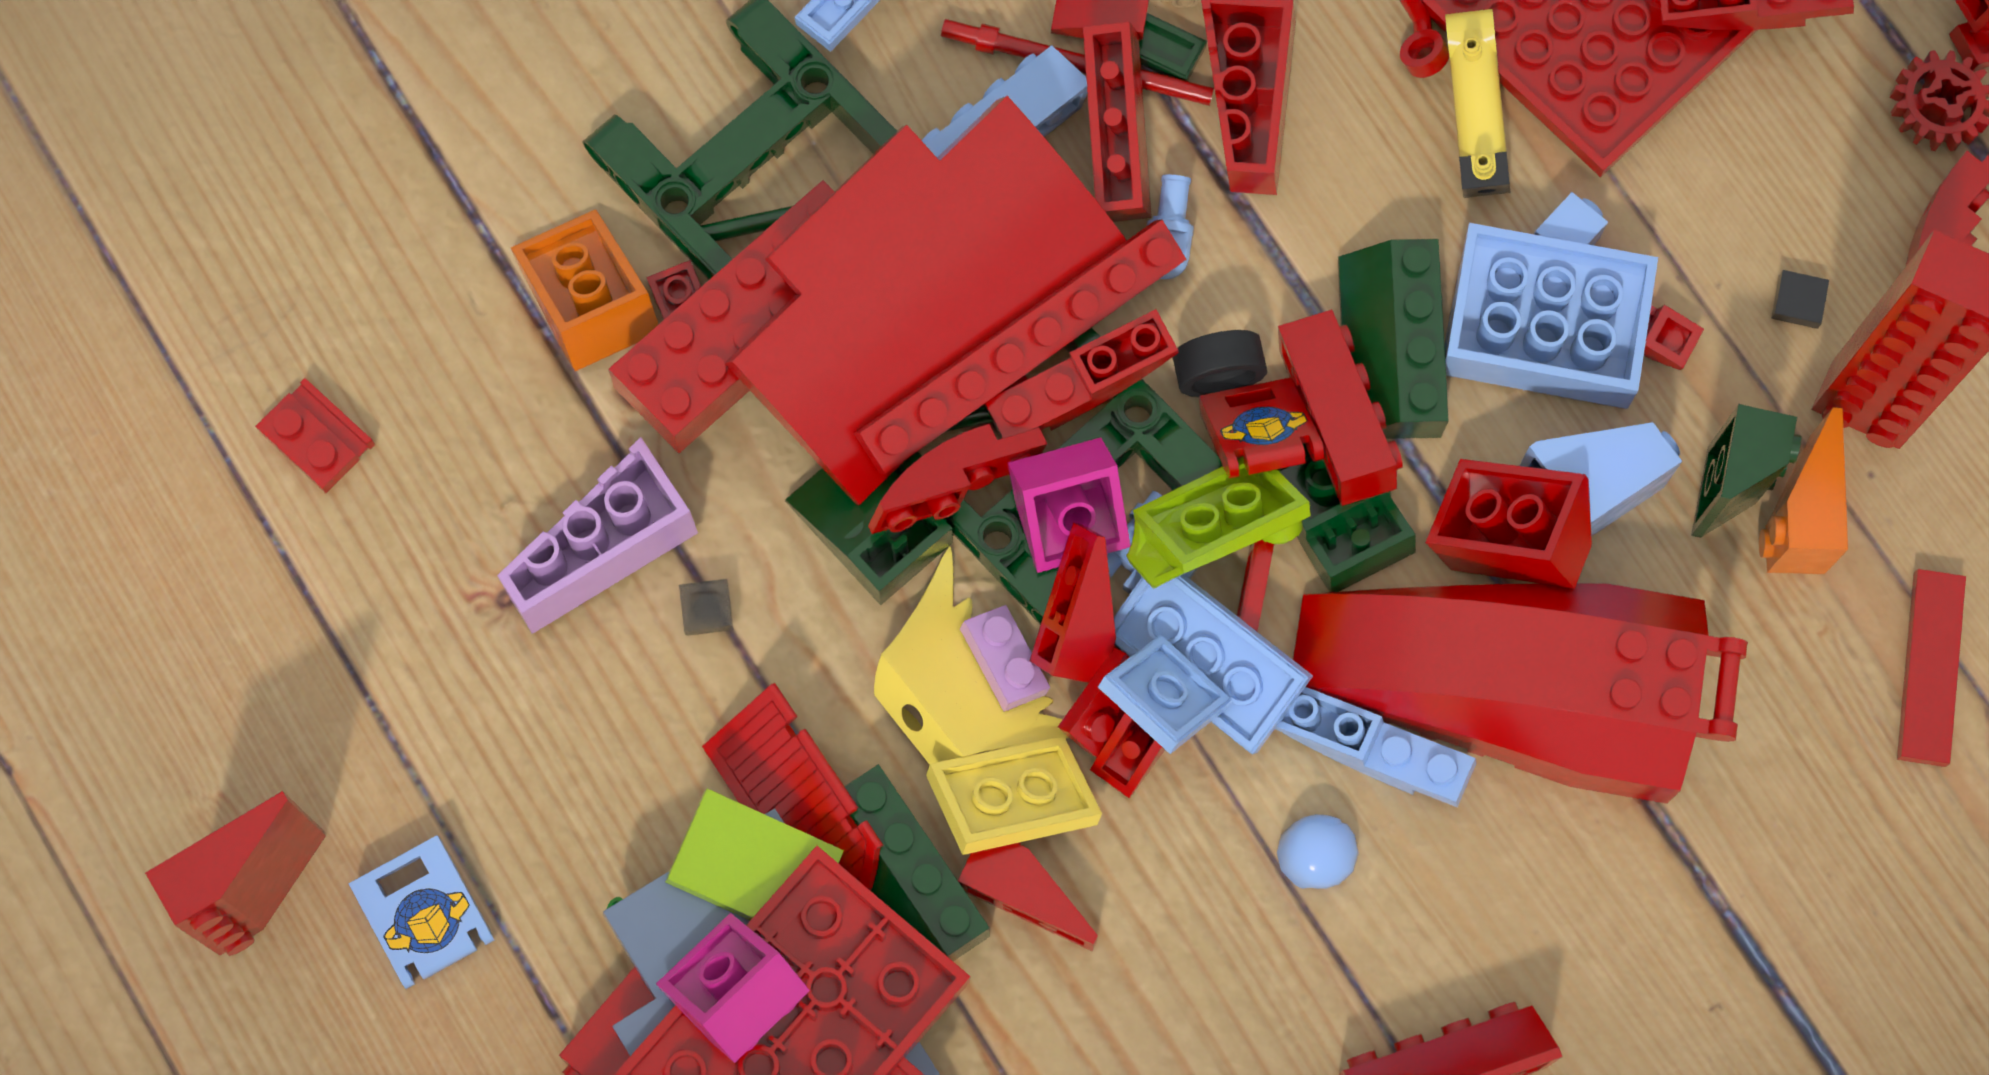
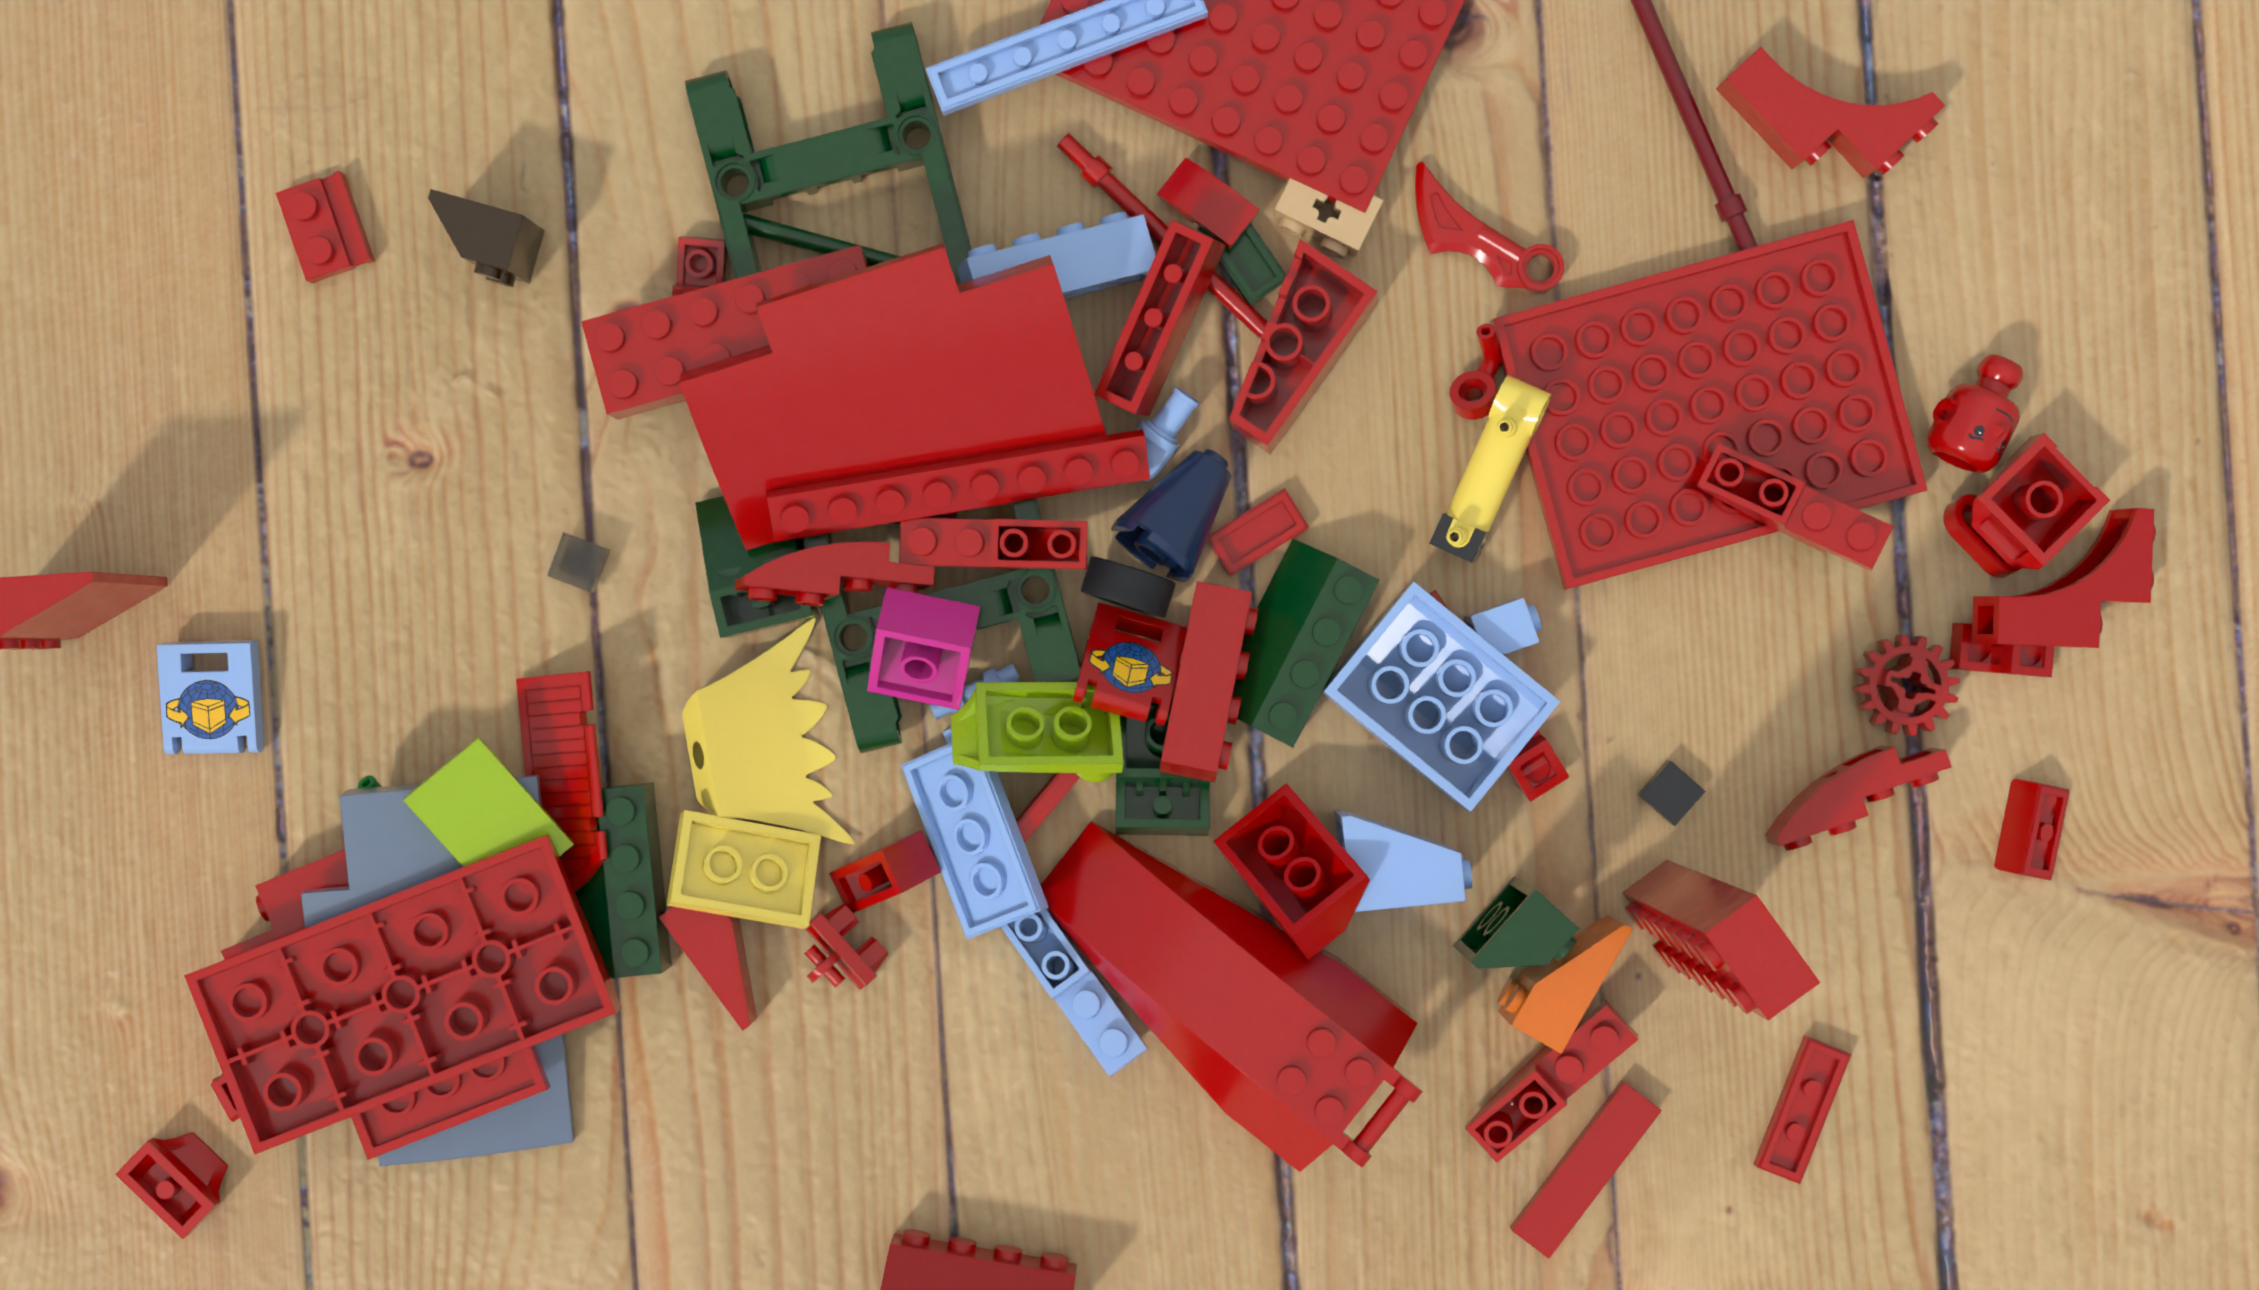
camera: 30 degrees right, 15 degrees up
(475, 354) = (491, 238): none -> dark brown slope
(586, 289) = (619, 220): orange slope -> none
(599, 540) = (522, 456): lavender wedge -> none
(733, 987) = (405, 924): dark pink slope -> none
(1004, 658) = (807, 742): lavender plate -> none
(1079, 615) = (876, 753): red slope -> none
(1094, 713) = (867, 829): red plate -> none
(1141, 832) = (829, 934): none -> red hips
(1165, 693) = (913, 857): light blue tile -> none
(1225, 282) = (1176, 515): none -> dark blue cone
(1303, 268) = (1257, 532): none -> red tile
(1317, 852) = (979, 1045): light blue hair -> none
(1852, 600) = (1548, 1081): none -> red slope

